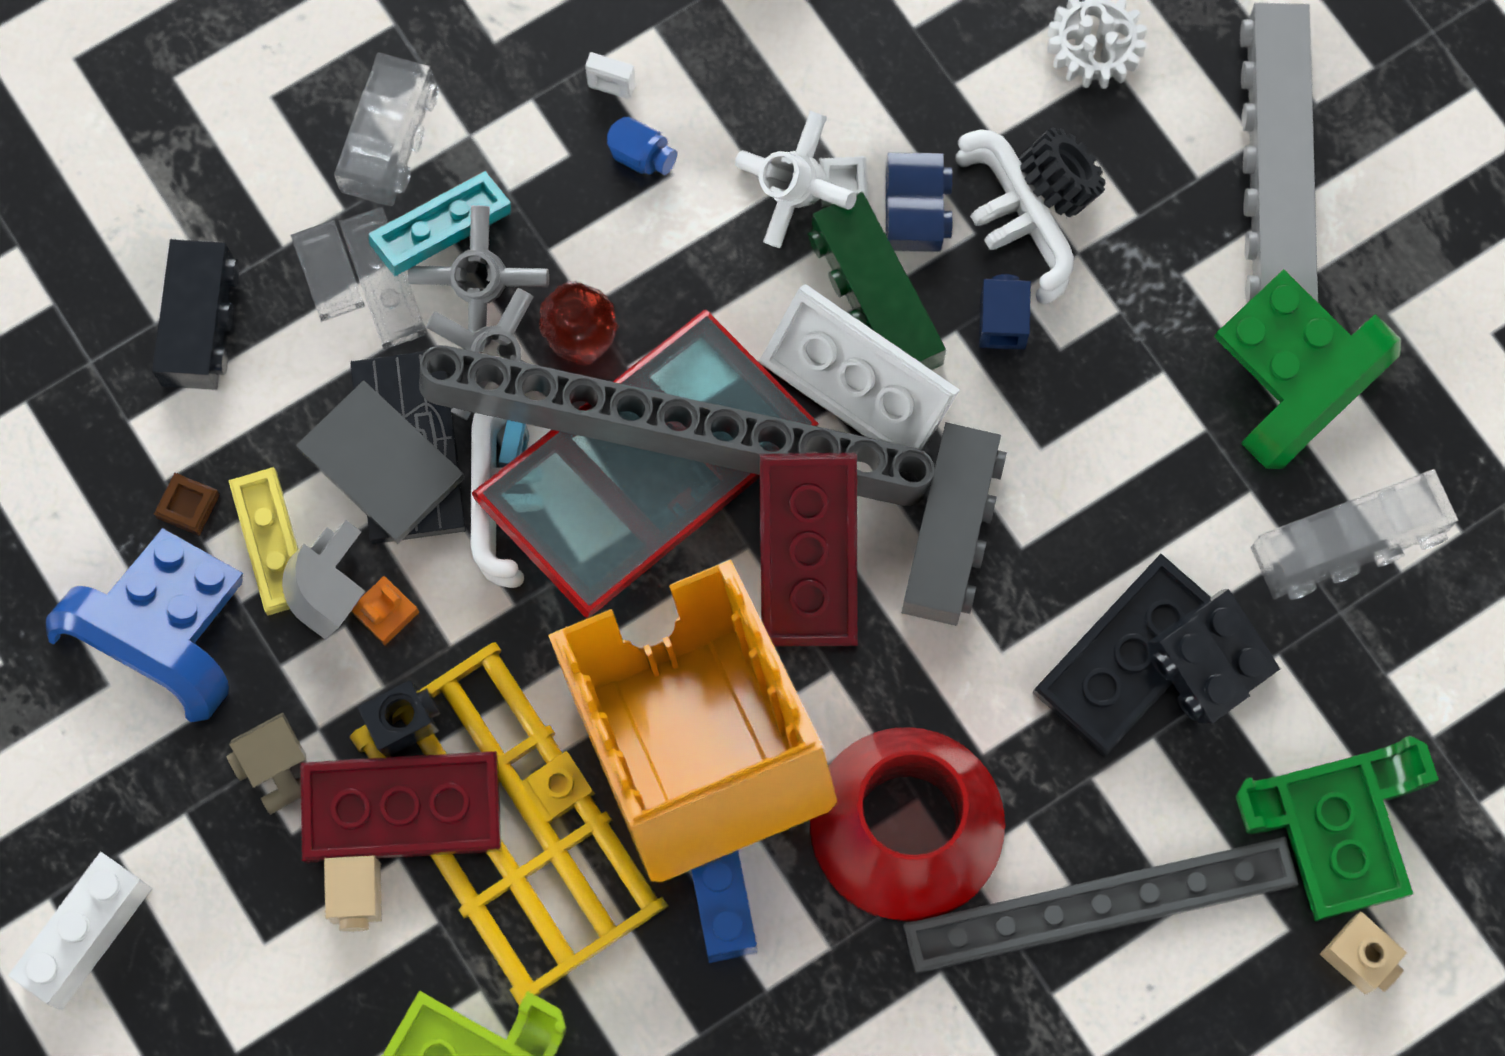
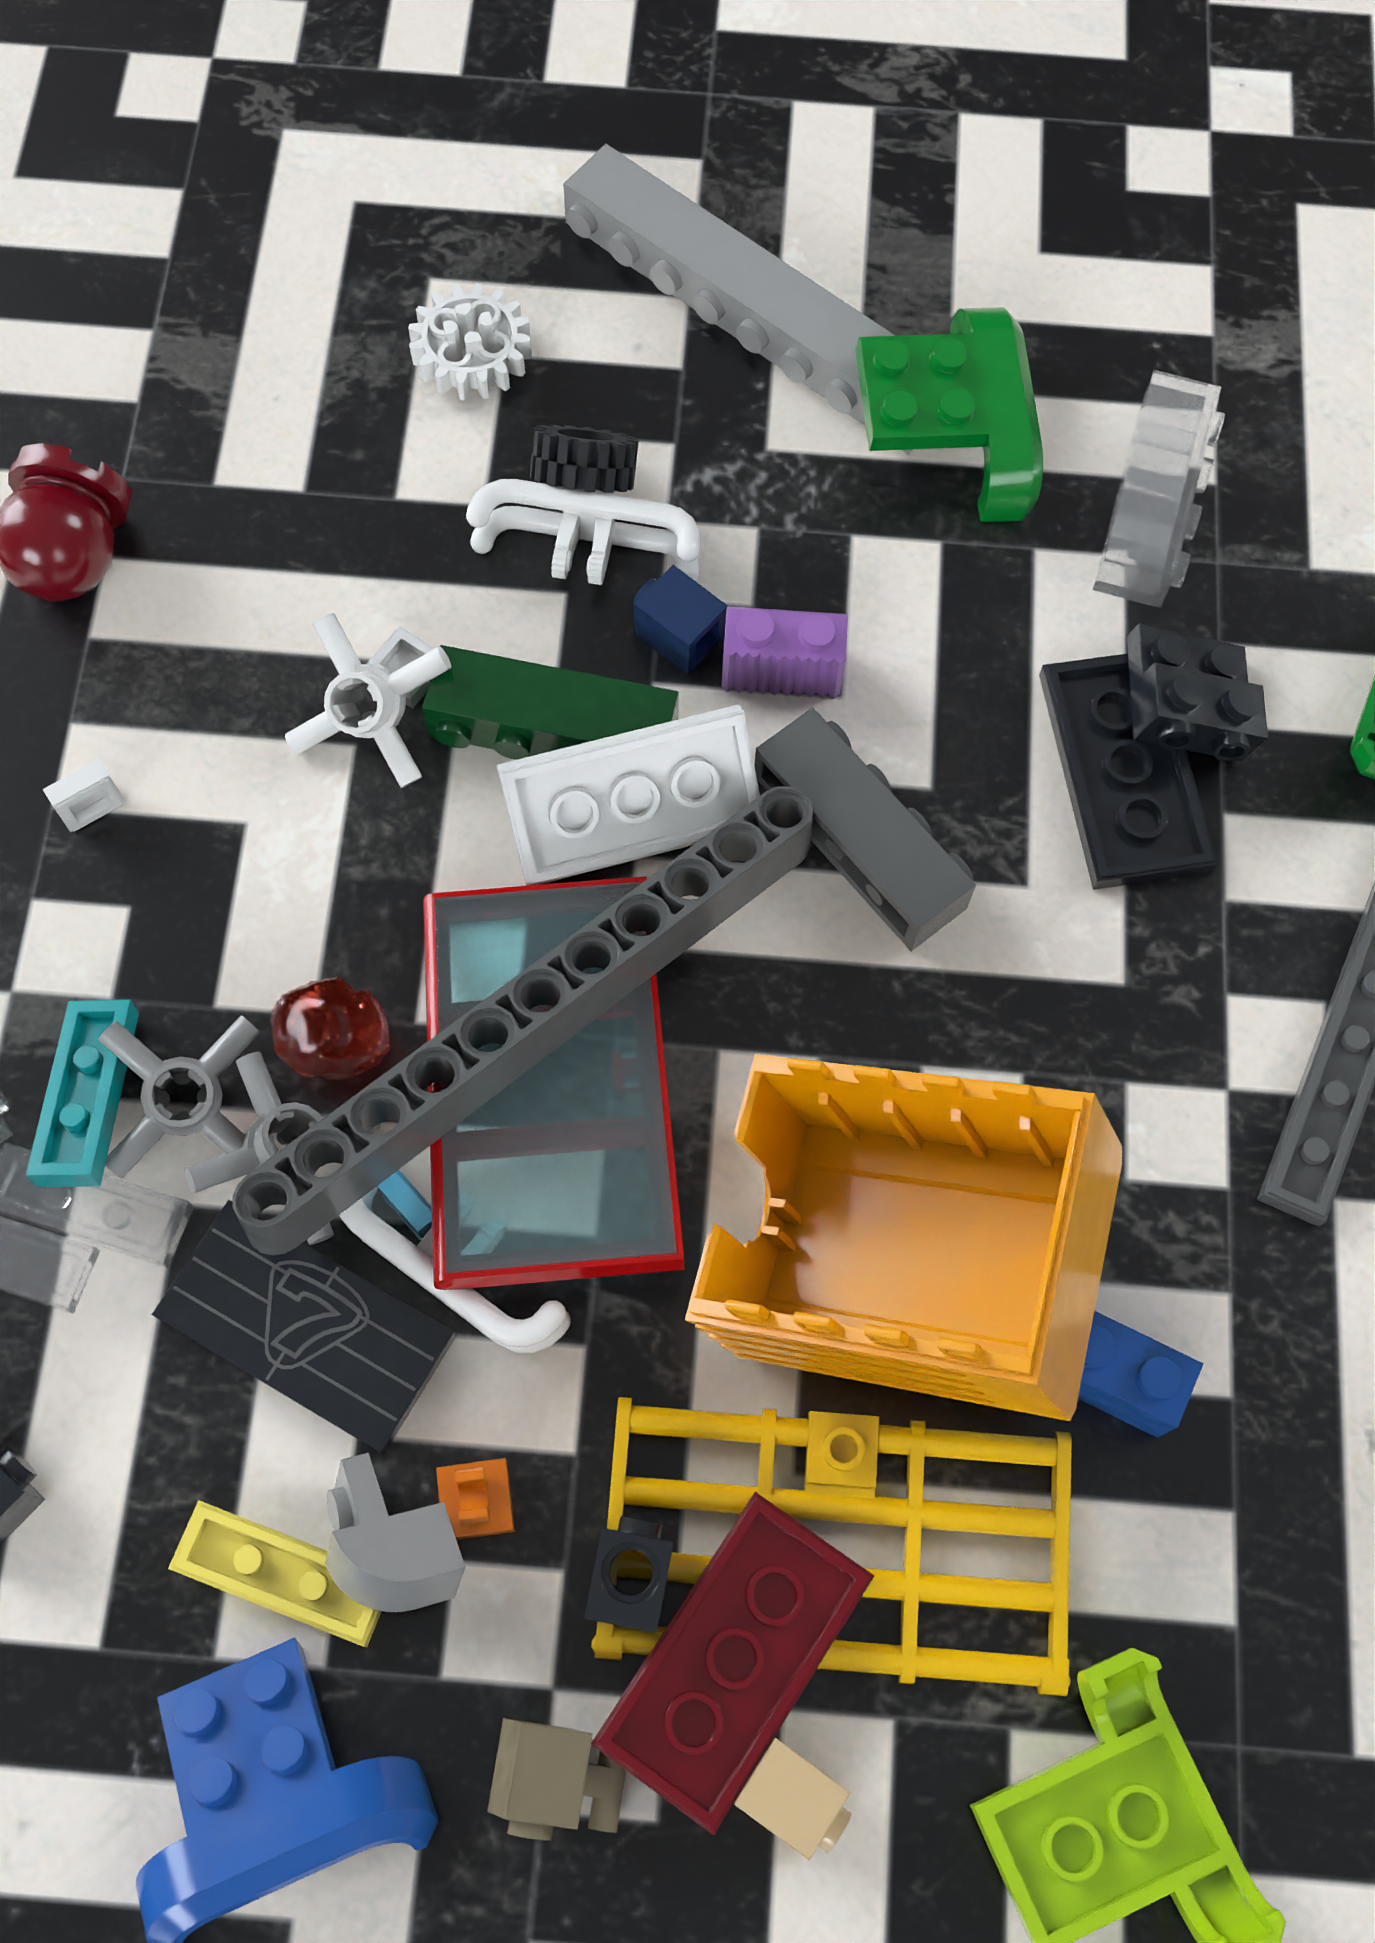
camera: 55 degrees left, 5 degrees down
(186, 504) = (151, 1643): reddish brown tile -> none
(380, 462) = (300, 1369): dark grey tile -> none
(640, 147) = (189, 826): blue arm -> none
(809, 548) = (781, 969): dark red tile -> none
(898, 883) = (1168, 1179): red cone -> none
(916, 202) = (488, 611): dark blue brick -> none
(1033, 390) = (784, 651): none -> medium lavender brick

